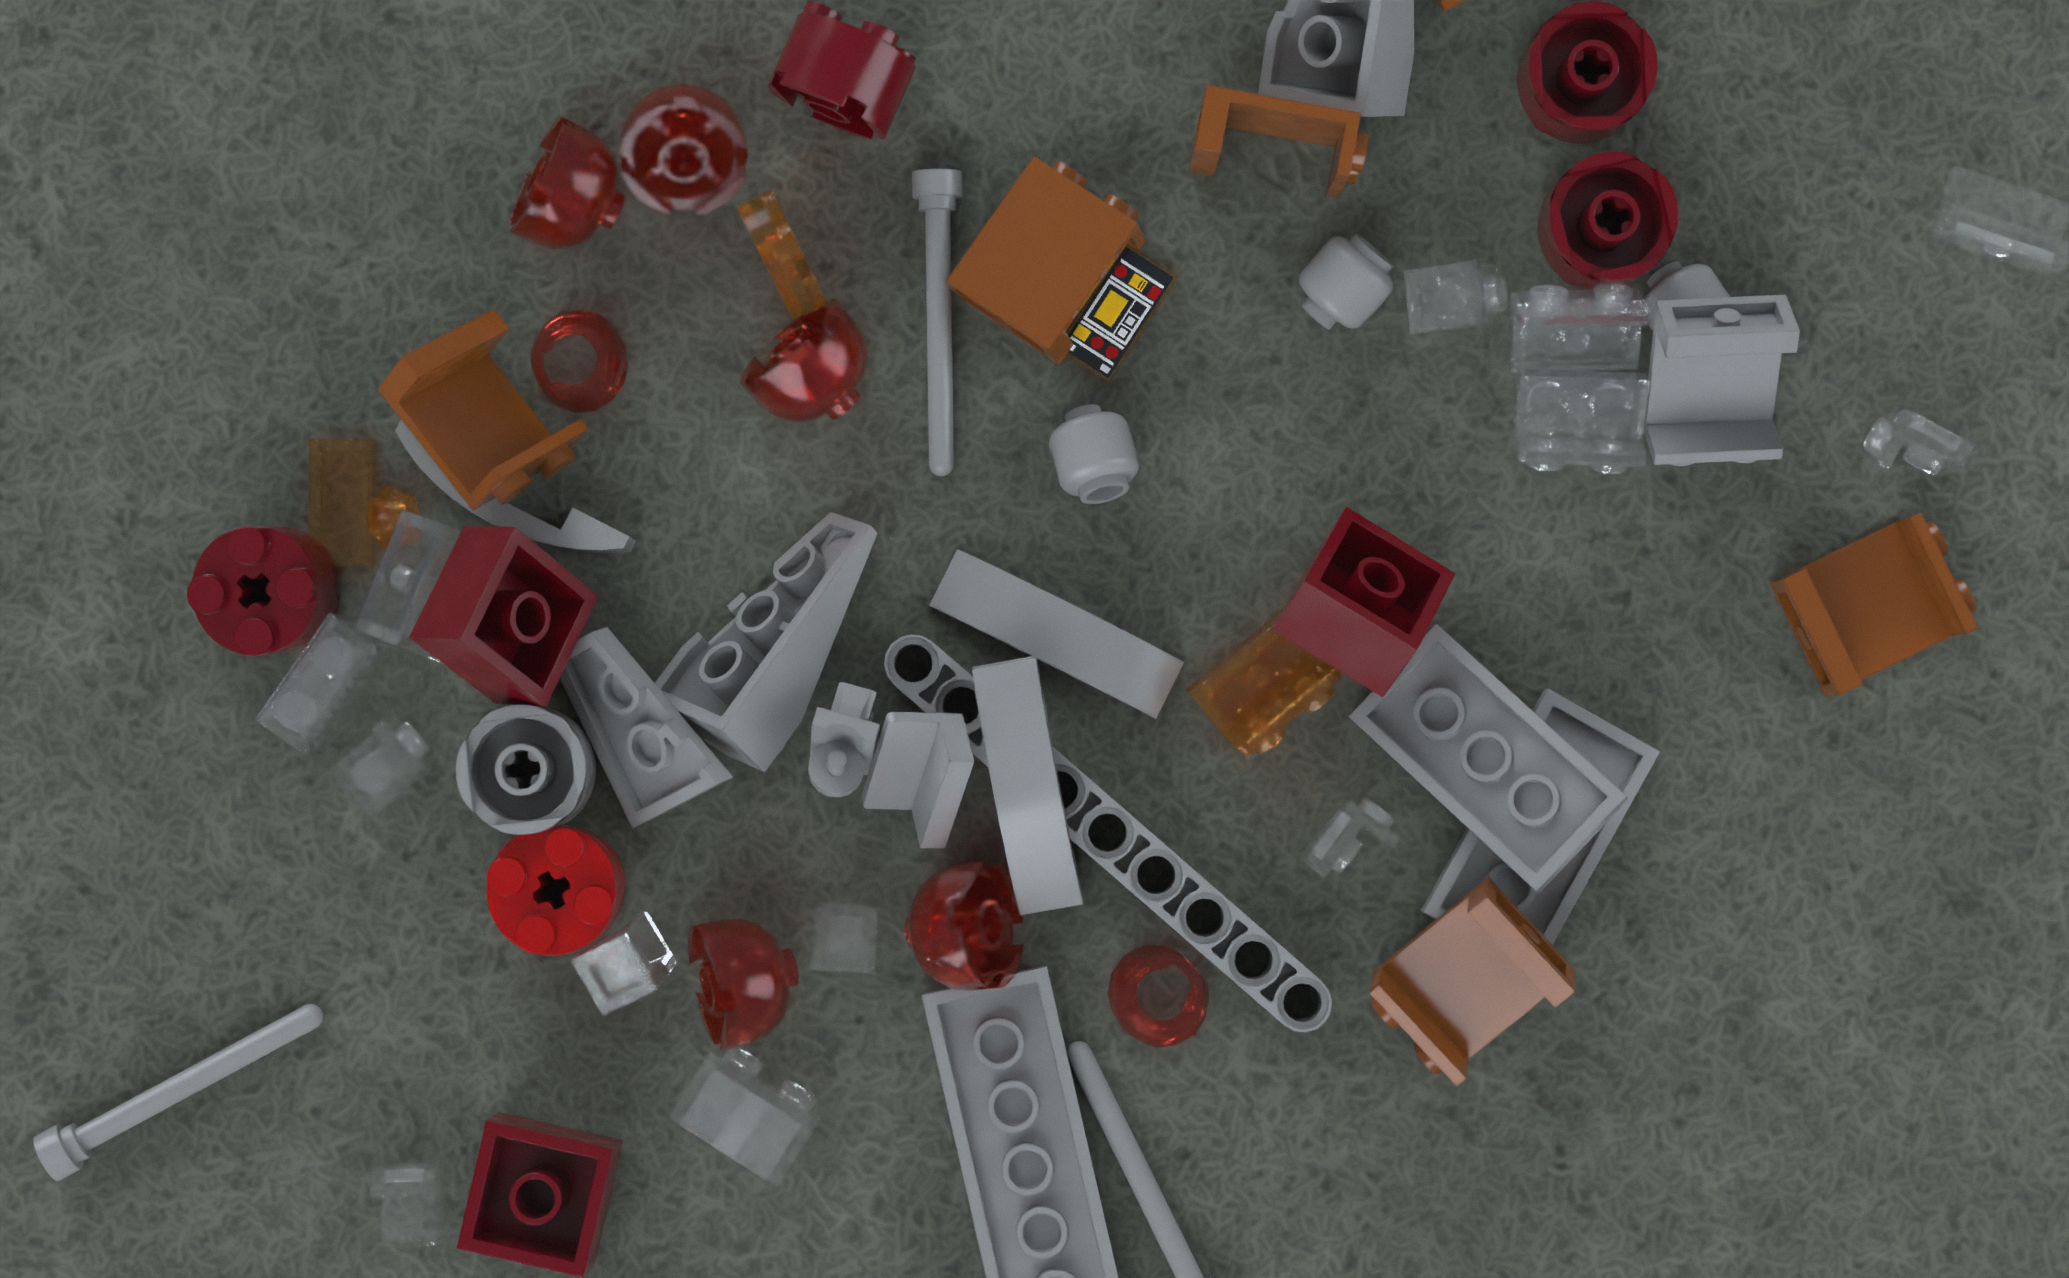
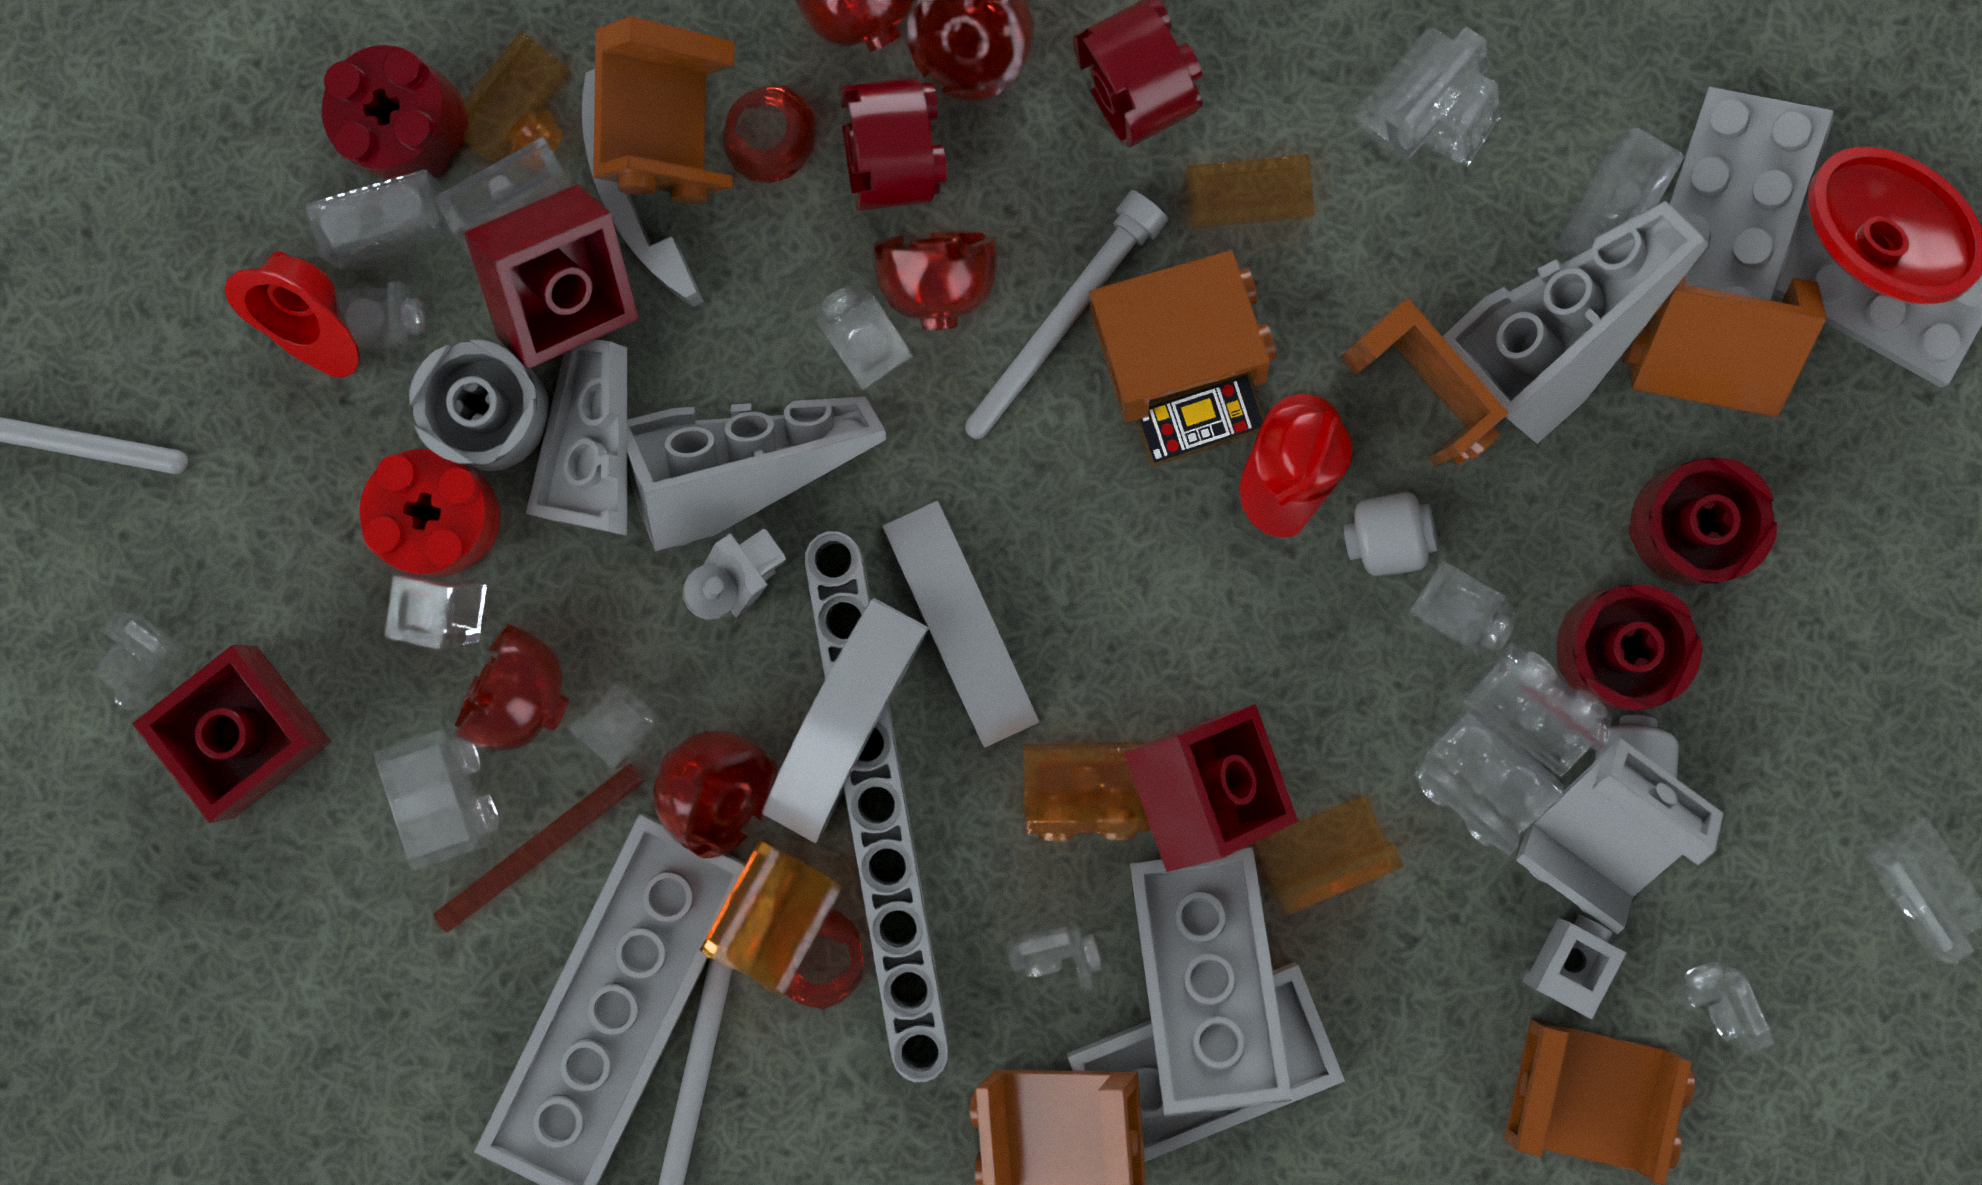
camera: 40 degrees right, 0 degrees up
(312, 813) = (297, 310): none -> red piece
(689, 289) = (891, 143): none -> dark red brick
(782, 254) = (981, 172): clear orange plate -> none
(787, 463) = (861, 334): none -> clear bracket
(860, 1090) = (538, 848): none -> clear red bar
(922, 768) = (776, 641): light grey panel -> none
(1008, 95) = (1250, 191): none -> clear orange tile
(1094, 454) = (1096, 511): light grey head -> none
(1096, 991) = (771, 917): none -> clear orange panel
(1222, 288) = (1294, 464): none -> red piece
(1499, 582) = (1326, 855): none -> clear orange panel
(1791, 521) = (1588, 983): none -> light grey brick

